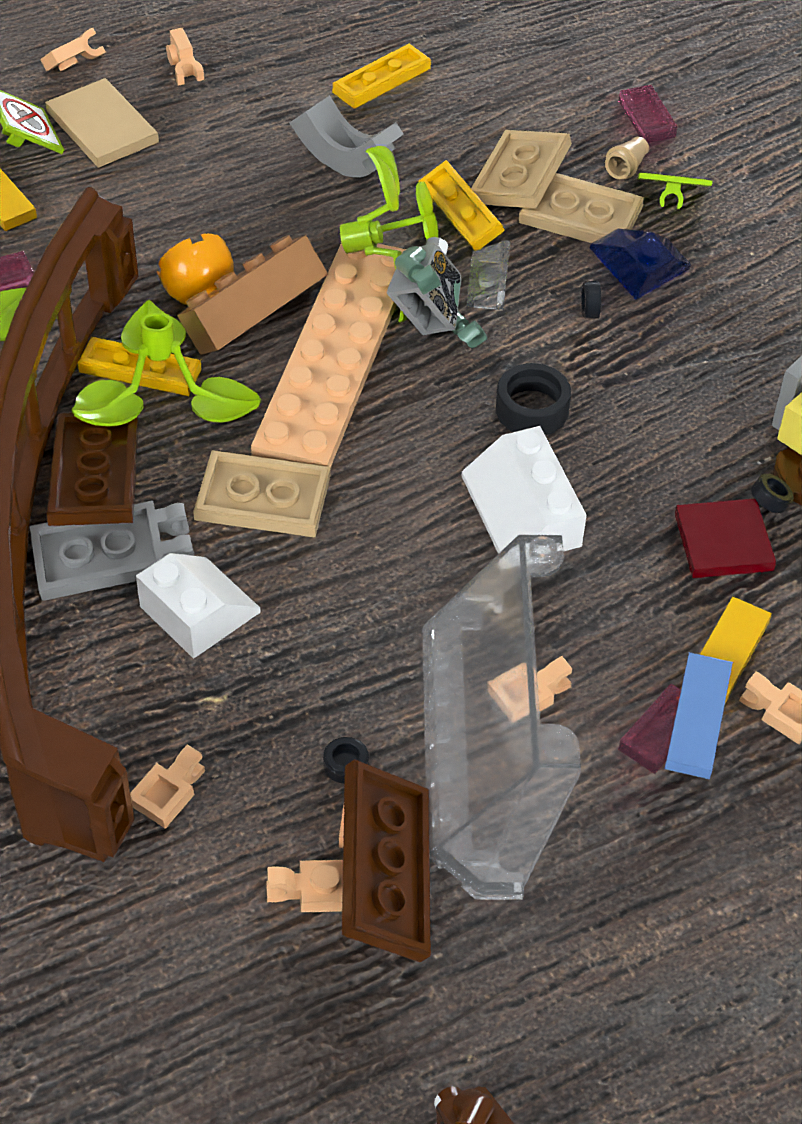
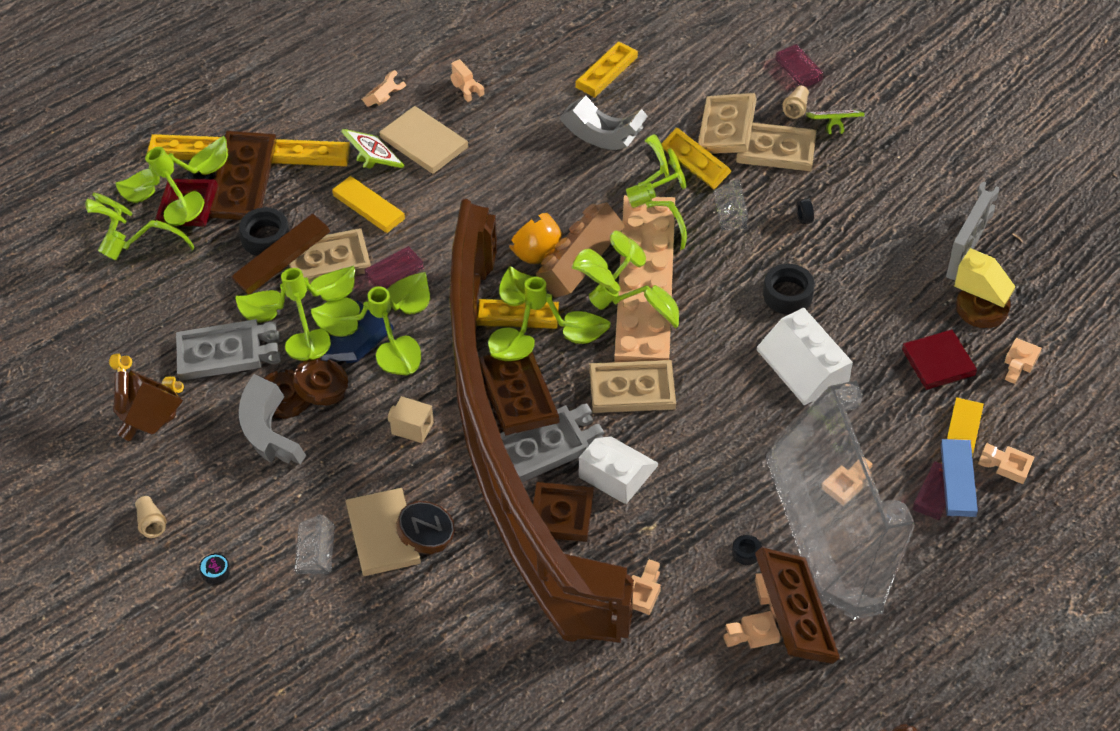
camera: 10 degrees left, 0 degrees up
(91, 650) = (565, 509): none -> reddish brown plate
(268, 356) = (608, 289): none -> lime plant
(429, 291) = (699, 227): torso -> none
(640, 259) = (827, 176): clear blue slope -> none
(772, 493) = (961, 323): black tile -> none

